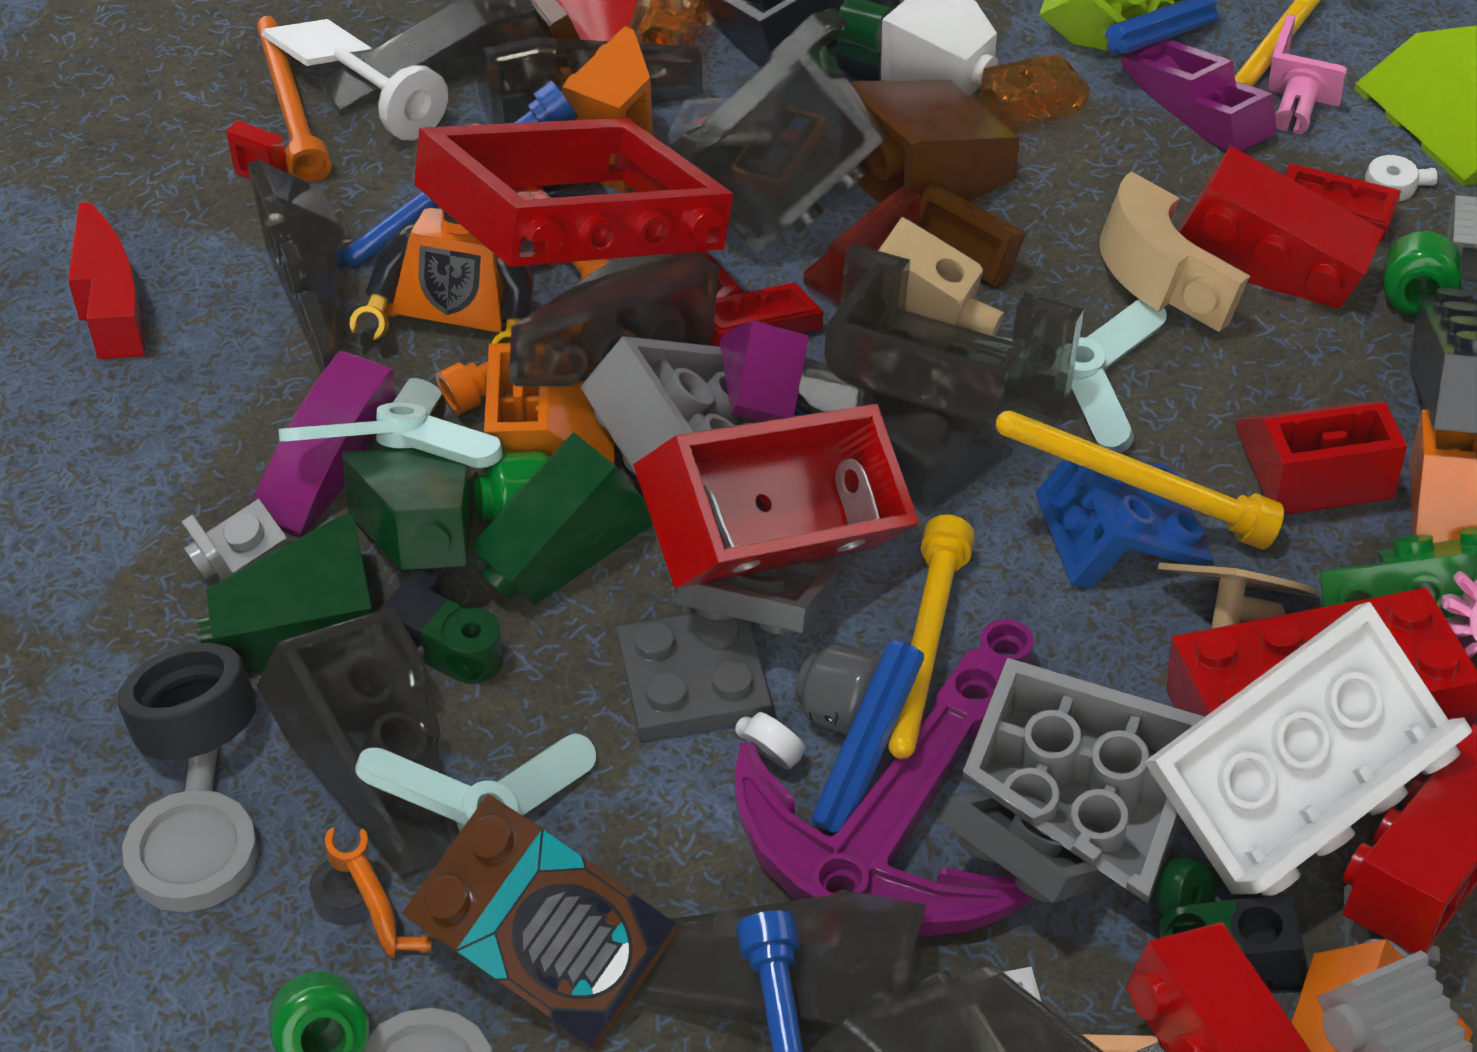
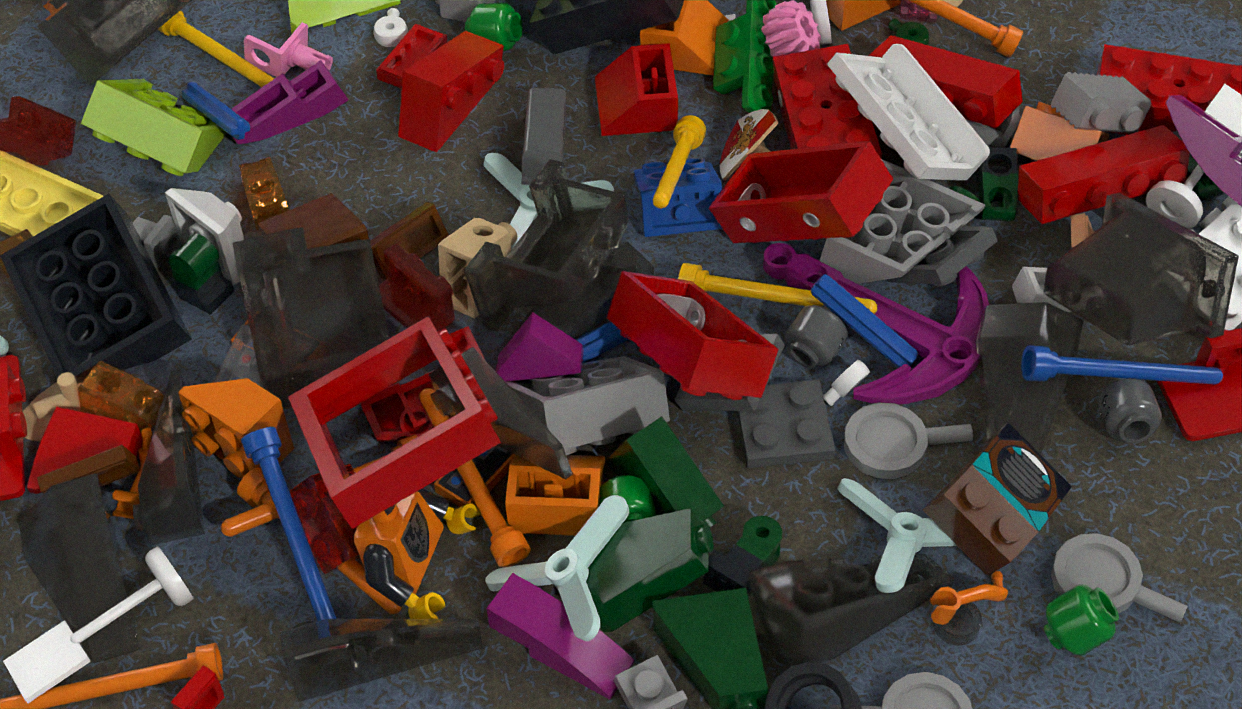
camera: 85 degrees left, 5 degrees up
(670, 805) = (893, 441): none -> light grey piece
(1076, 612) = (802, 193): none -> red piece
(1162, 264) = (452, 145): tan arch -> none
(1188, 347) = (543, 130): none -> dark grey piece

